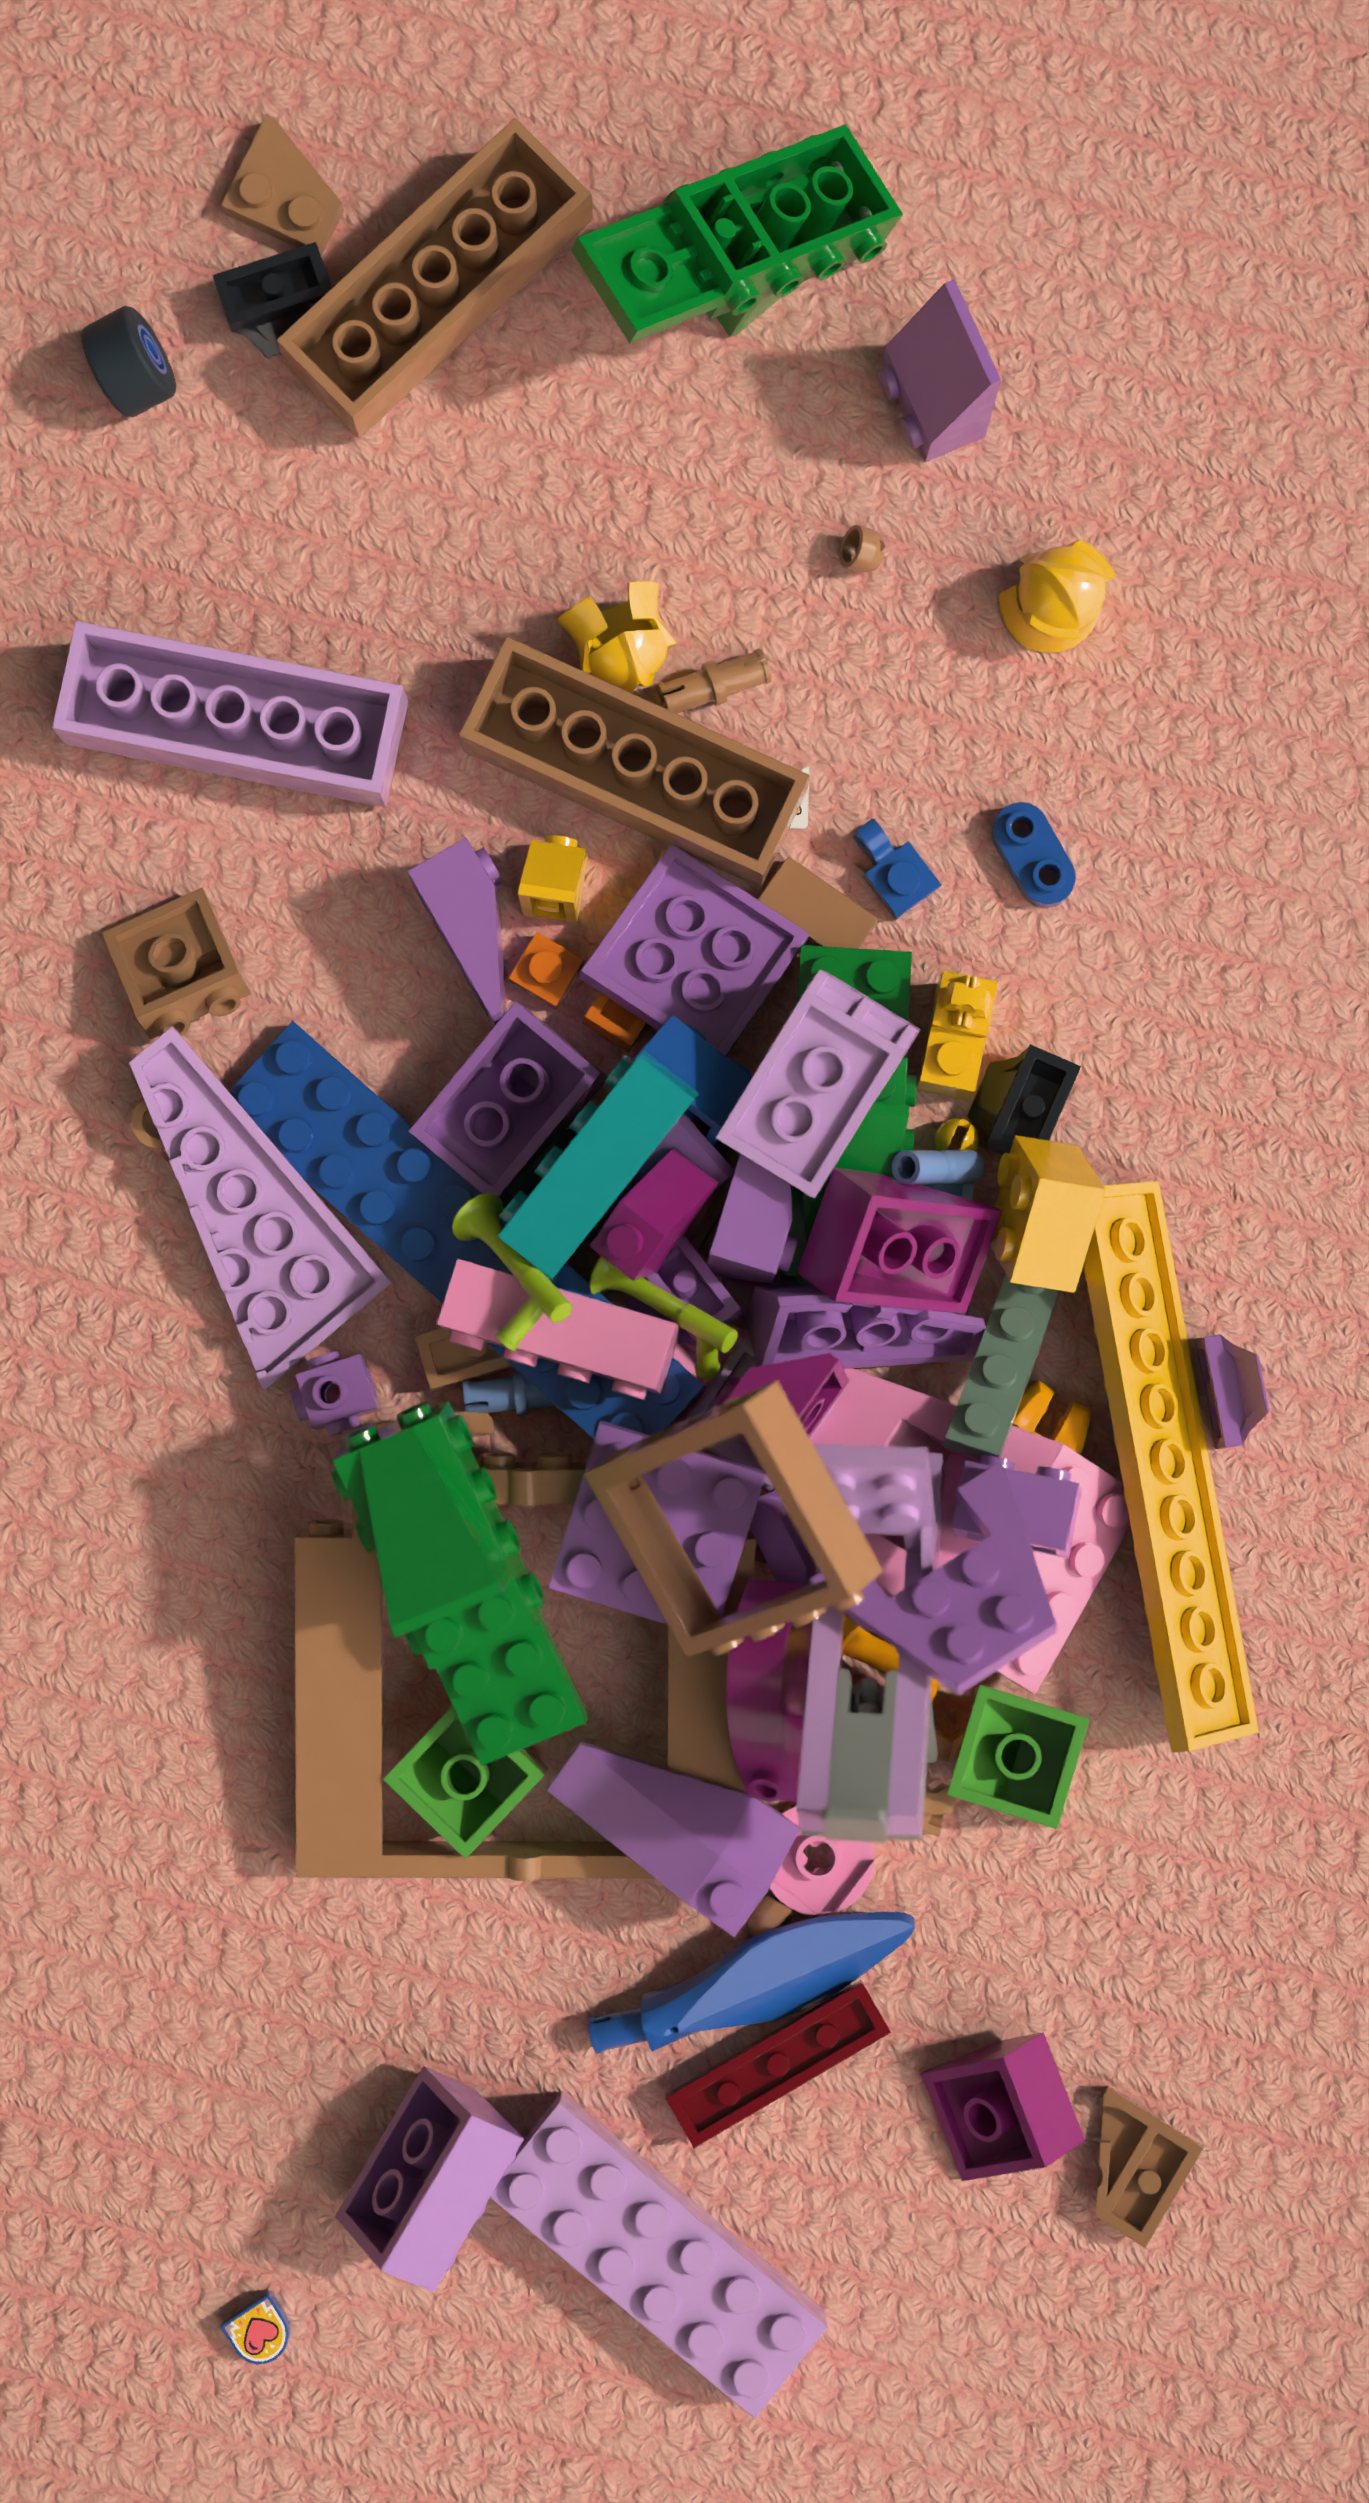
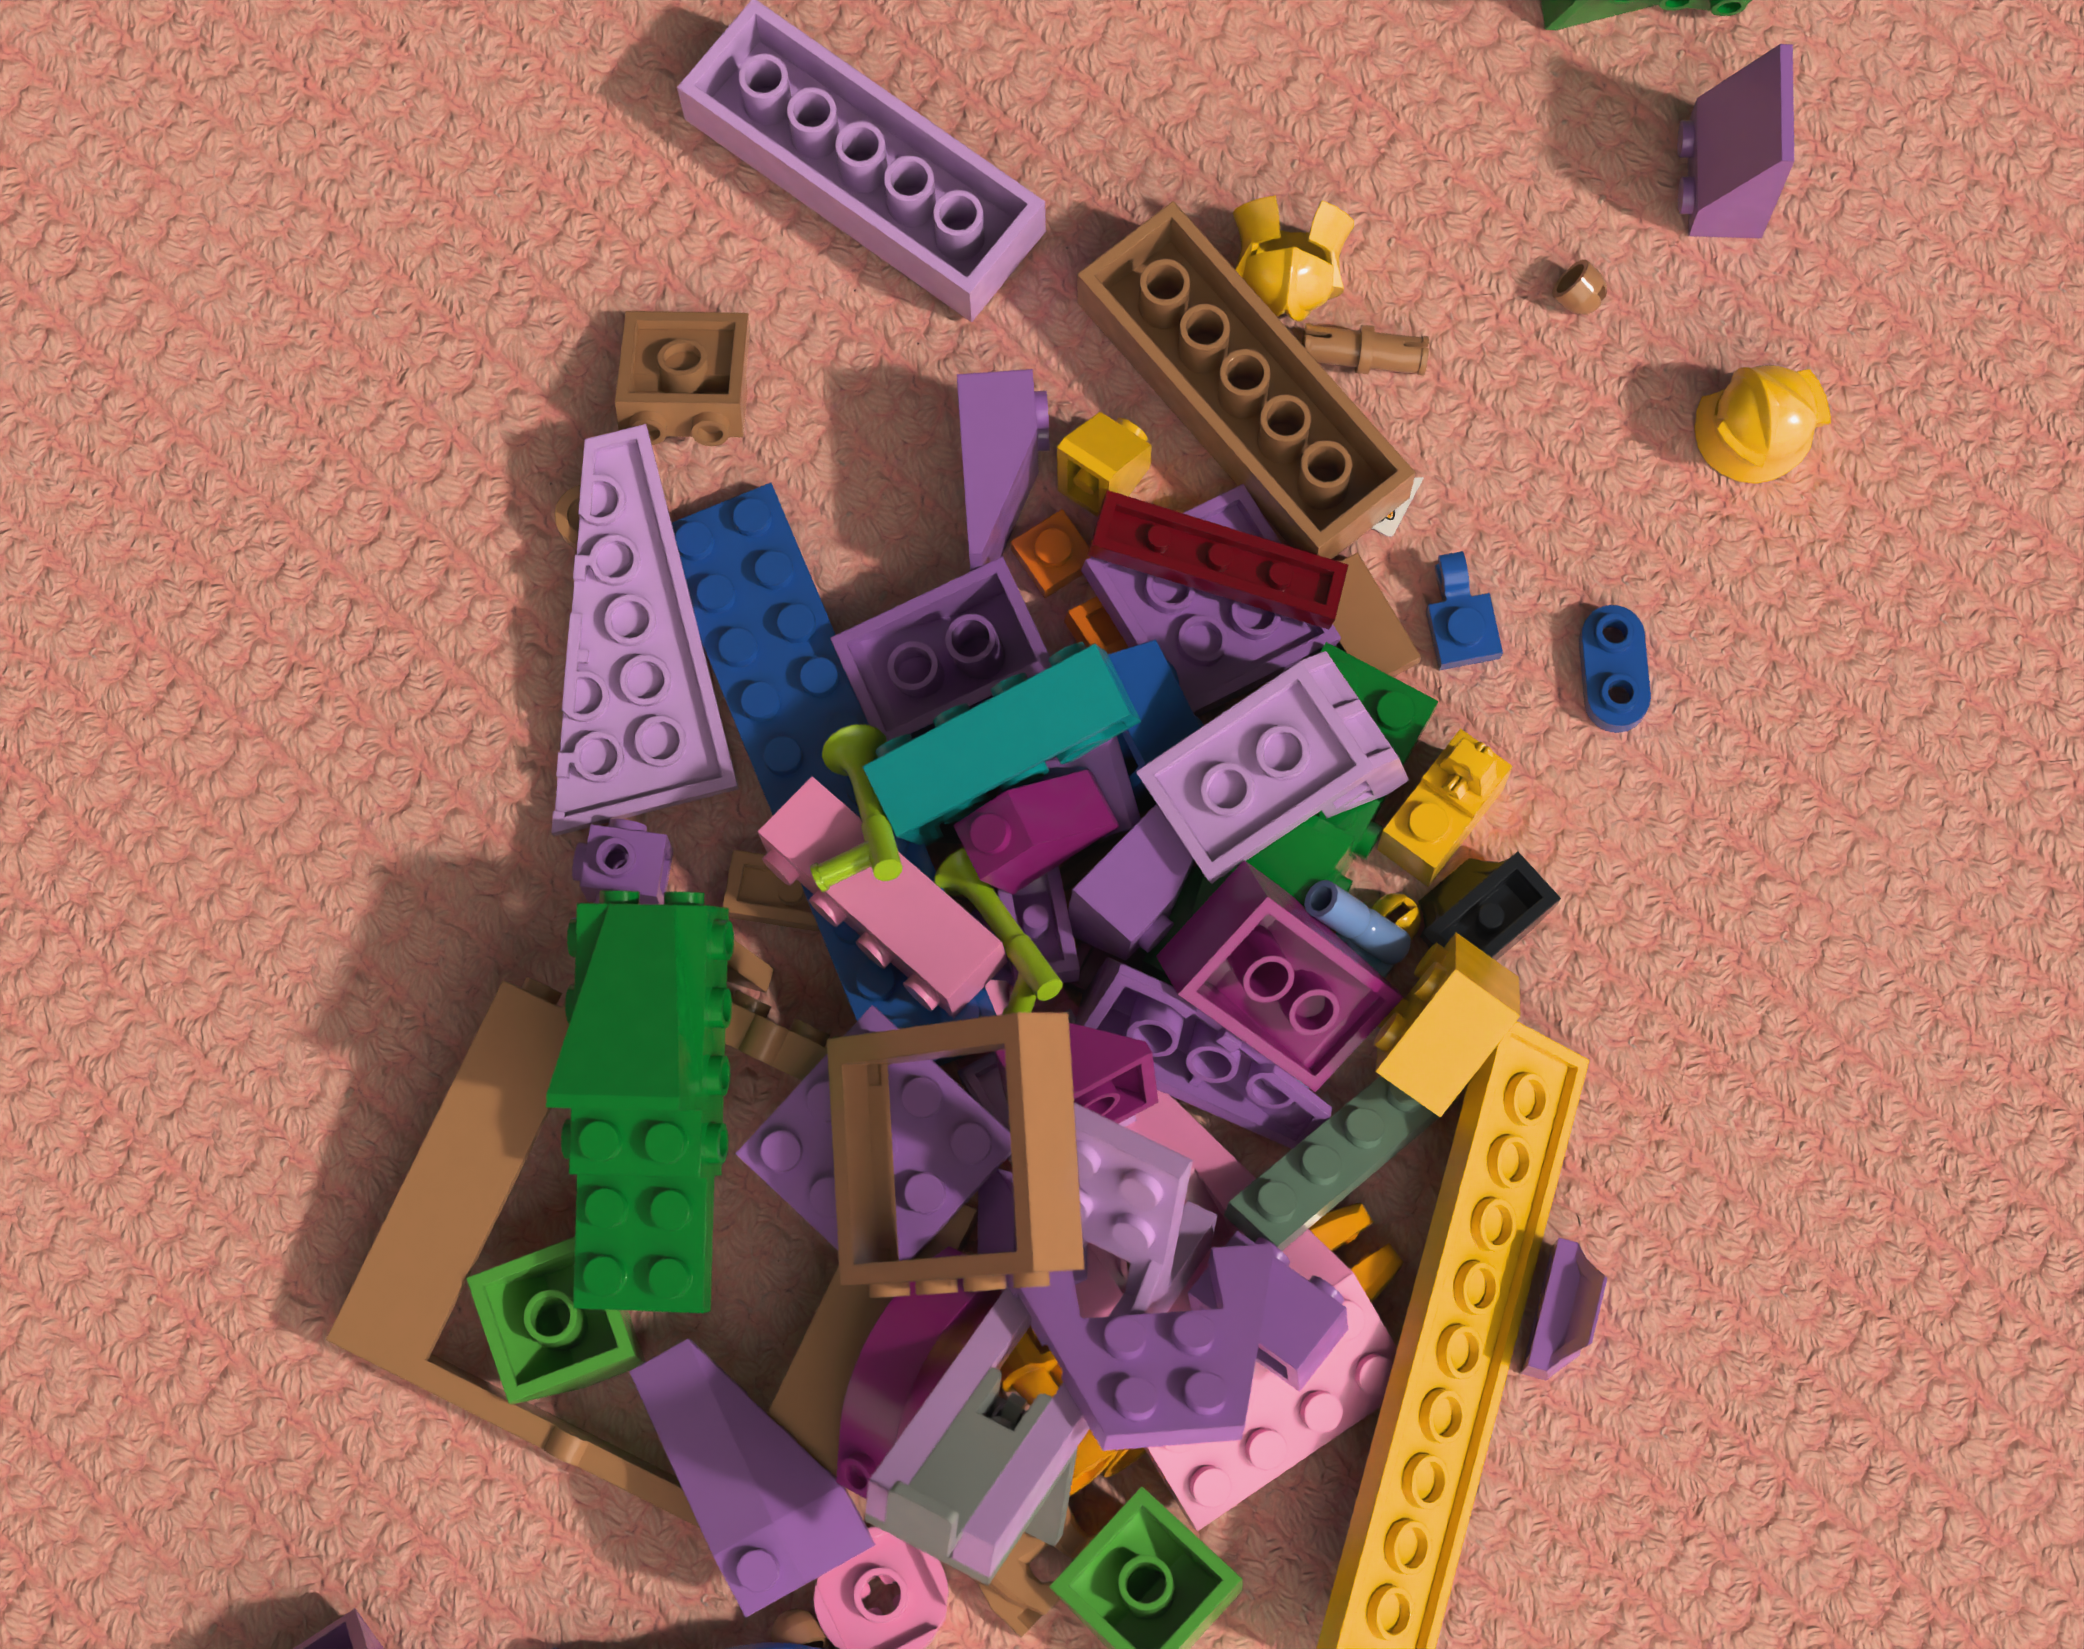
camera: 30 degrees right, 10 degrees down
(503, 1395) = (795, 954): medium blue pin -> none
(686, 920) = (1218, 560): none -> dark red plate

